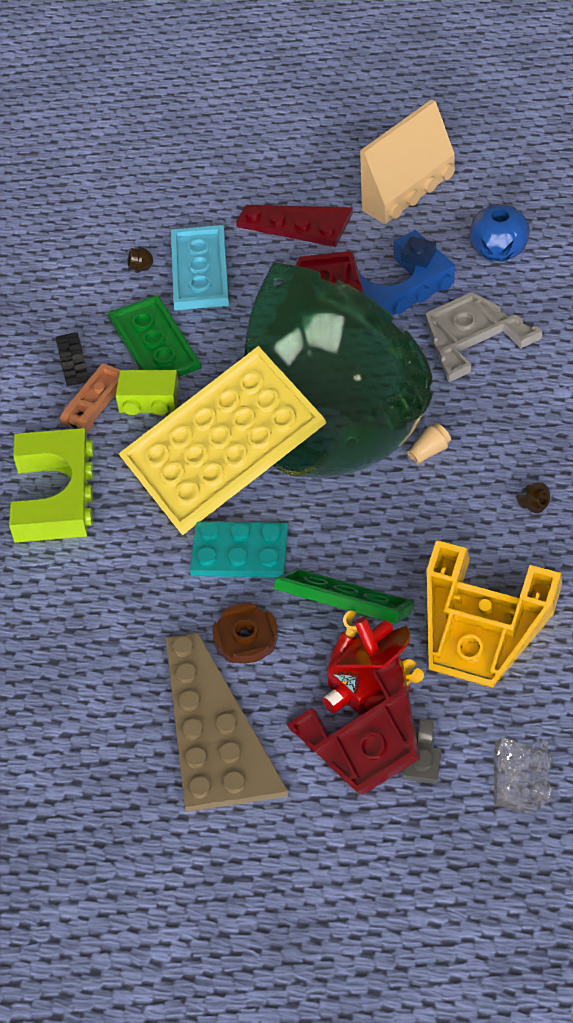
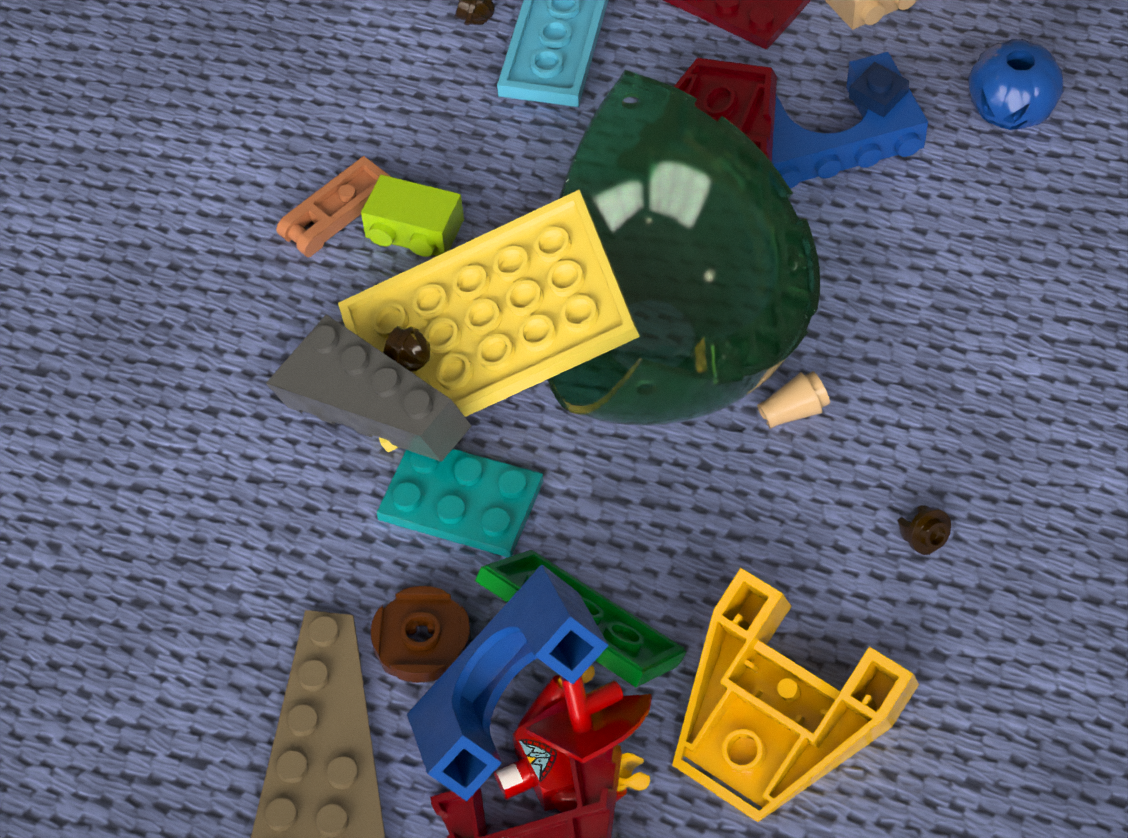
camera: 15 degrees right, 5 degrees up
(68, 511) = (234, 376): lime arch -> none
(72, 359) = (320, 140): black tyre -> none
(154, 337) = (453, 134): green tile -> none
(163, 497) = (364, 389): none -> dark grey wedge
(179, 467) = (408, 348): none -> dark brown plate
(289, 661) = (455, 715): none -> blue arch
(468, 322) = (921, 218): light grey wing -> none

